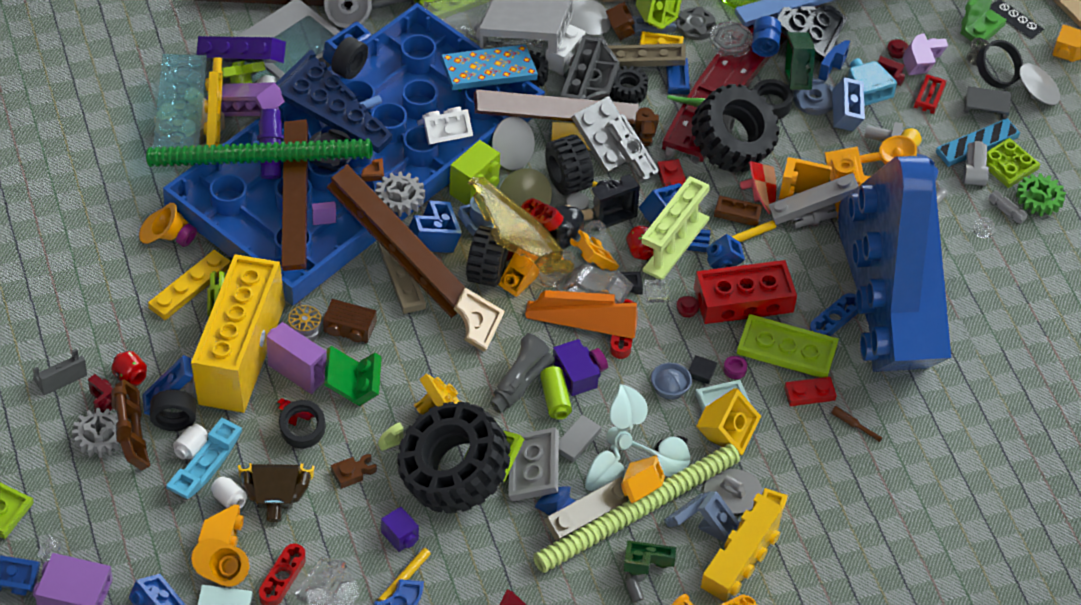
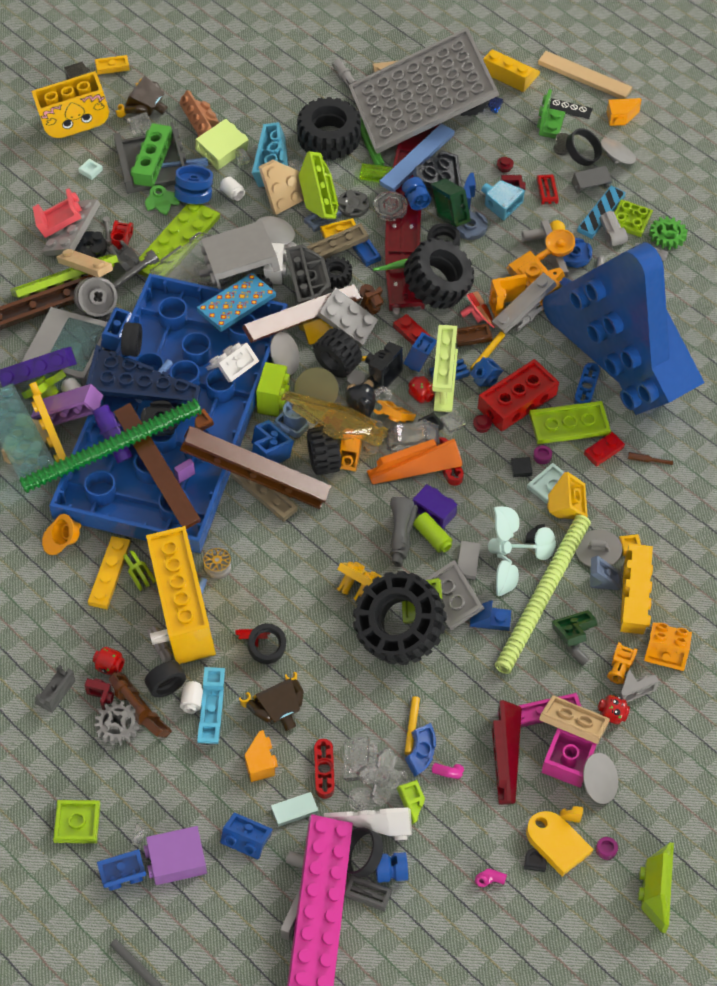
camera: 25 degrees left, 5 degrees up
(172, 379) = (154, 655): blue plate -> none
(186, 235) = (84, 534): magenta tile -> none
(220, 562) = (277, 781): light orange piece -> none
(228, 492) = (246, 724): white brick -> none
(296, 357) = (231, 593): medium lavender brick -> none
(349, 321) = (250, 546): reddish brown brick -> none
(351, 378) = (283, 589): green bracket -> none
(351, 472) = (322, 663): reddish brown plate -> none
(391, 437) = (337, 622): yellowish green tile -> none
(400, 529) = (388, 691): dark purple brick -> none
(401, 193) = (235, 429): light grey gear -> none
(480, 318) = (345, 500): tan tile -> none
(543, 213) = (349, 396): red beam -> none
(586, 509) = (512, 610): plate -> none
(598, 358) = (447, 491): magenta tile -> none
(621, 20) = (302, 224): reddish brown brick -> none
(641, 160) = (362, 312): light grey piece -> none
(642, 478) = (537, 569): light orange slope -> none
(671, 380) = (506, 485): sand blue hat -> none
(685, 511) = (579, 577): sand blue tile -> none
(848, 104) = (501, 221): medium blue brick -> none
(921, 54) = (526, 162): lavender brick -> none

